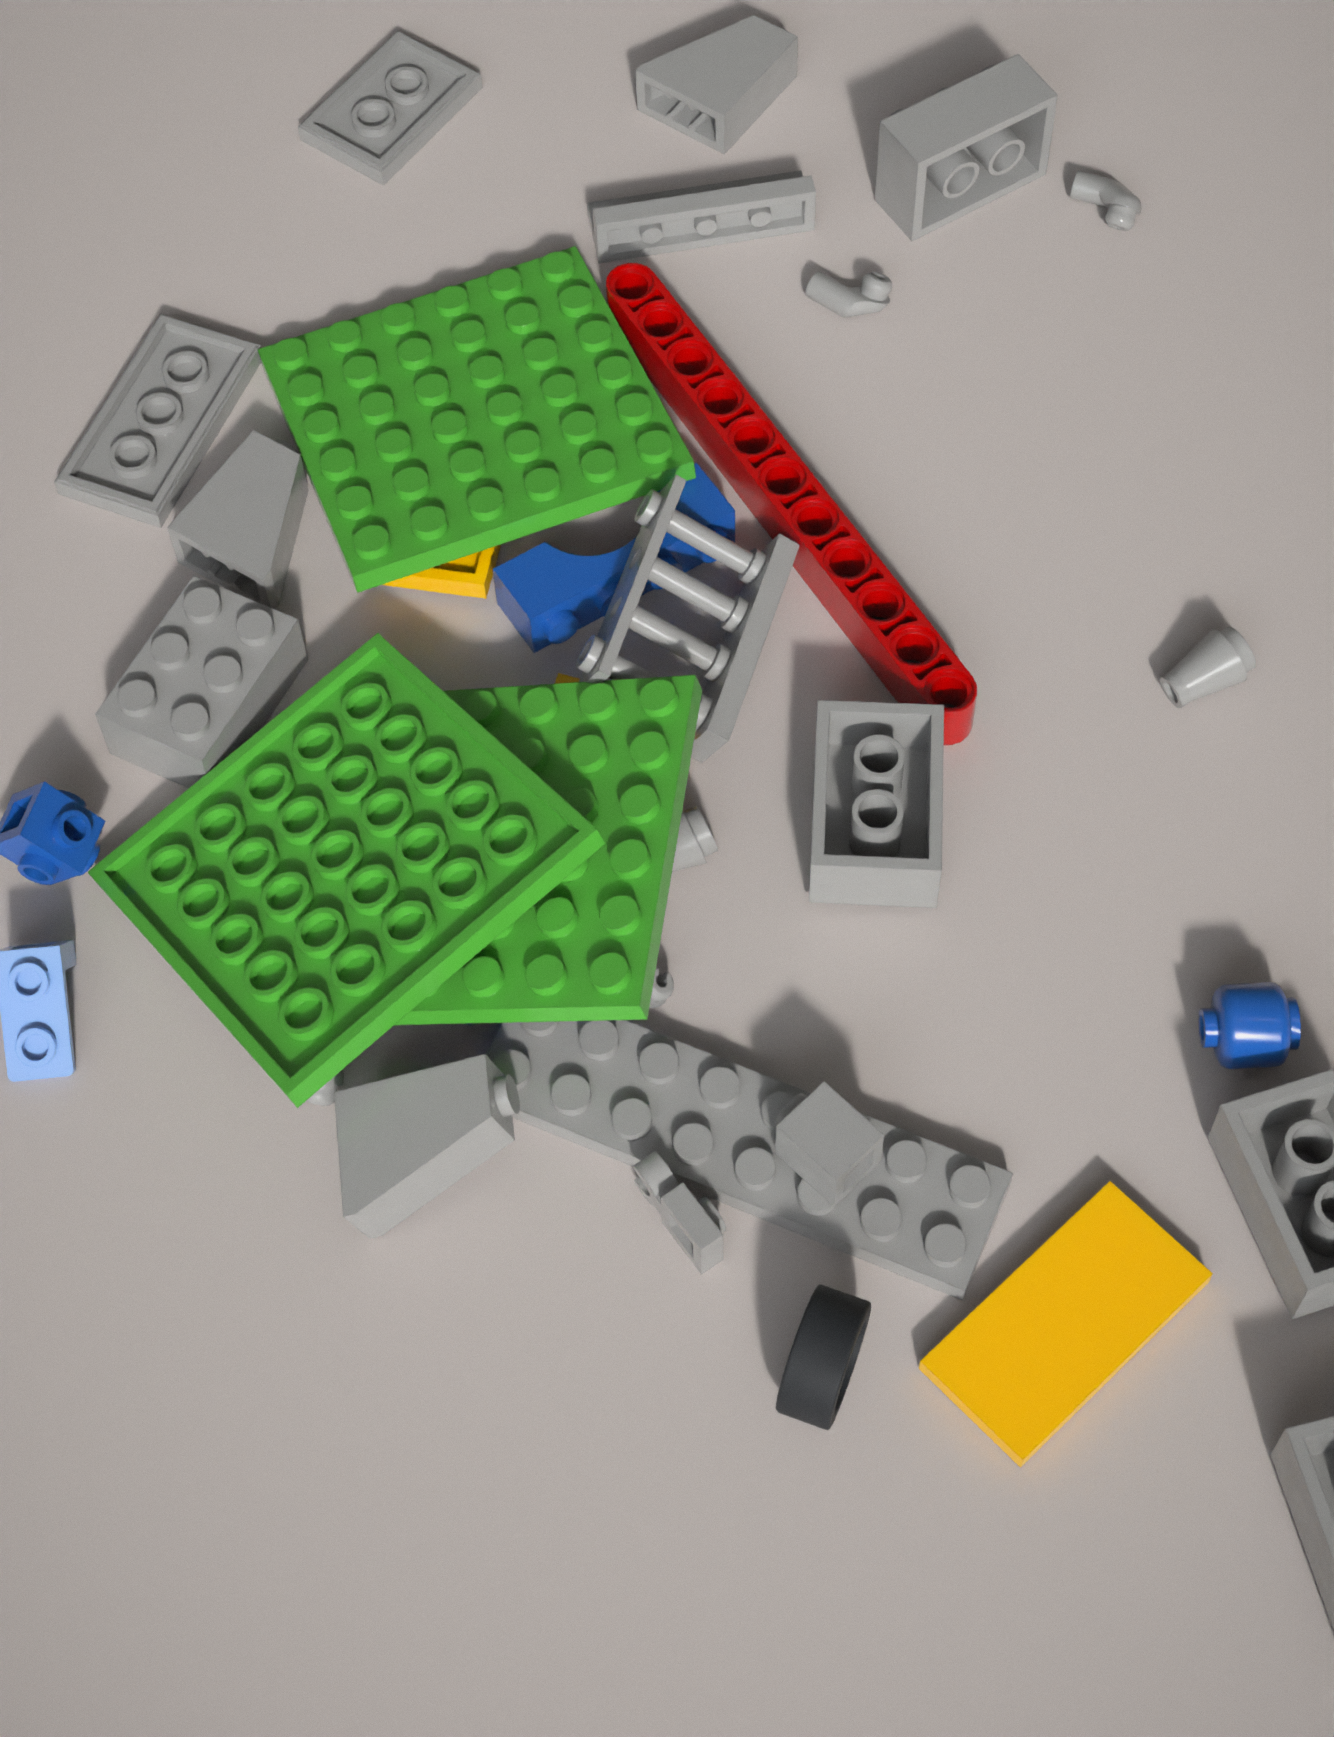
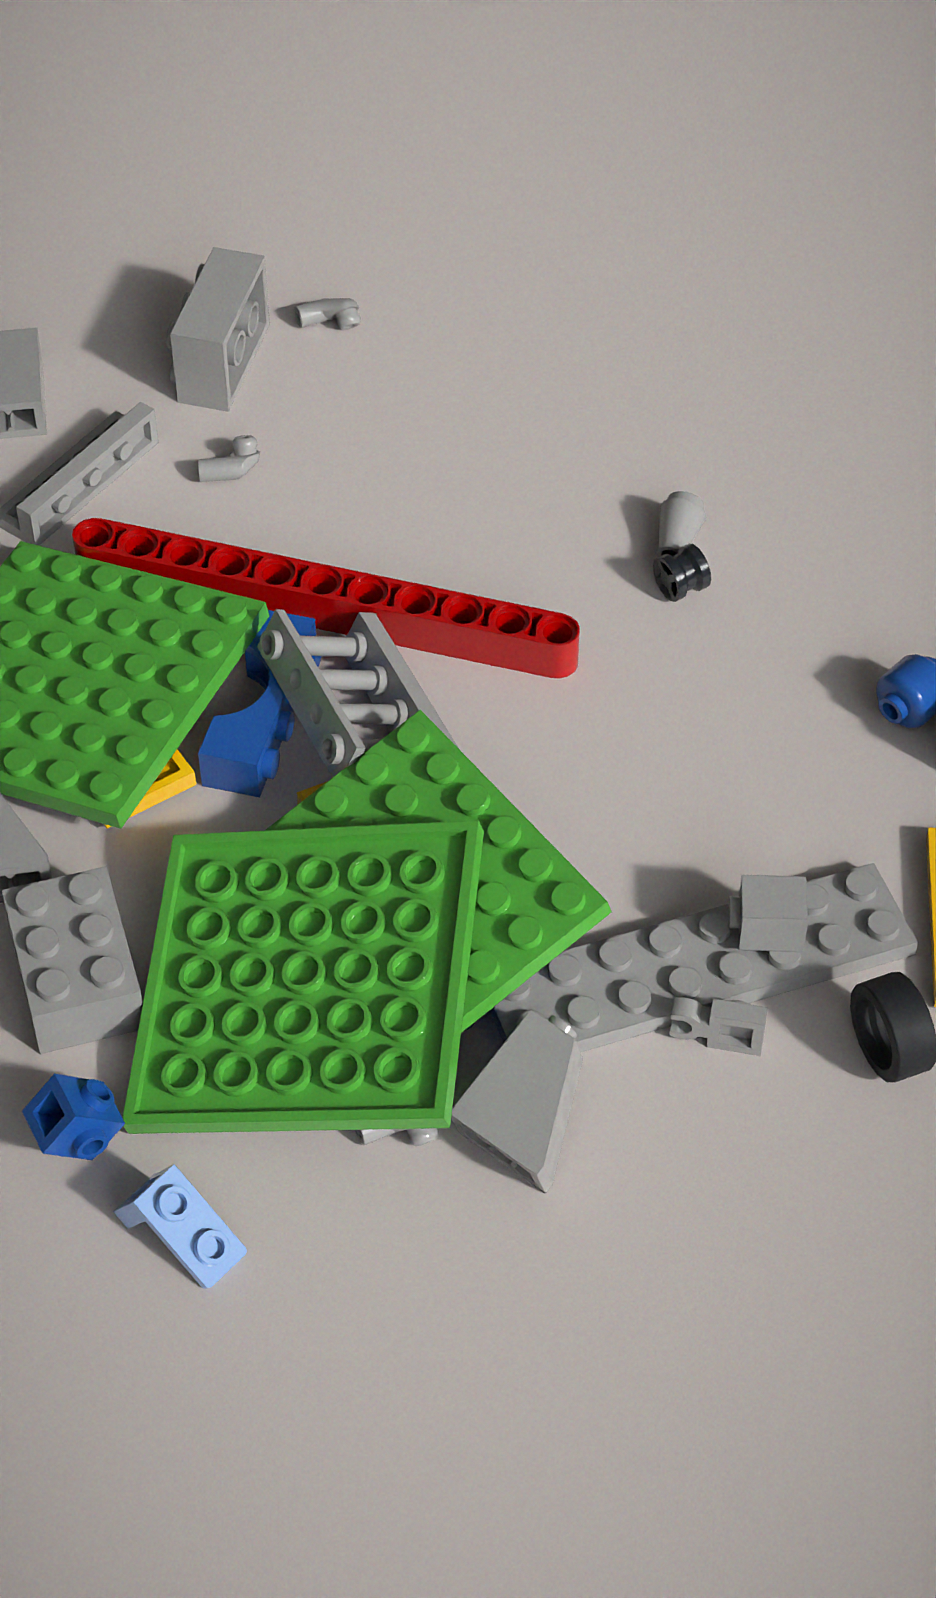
camera: 45 degrees left, 10 degrees down
(877, 804) = (583, 722): light grey brick -> none
(1155, 719) = (682, 572): none -> black wheel

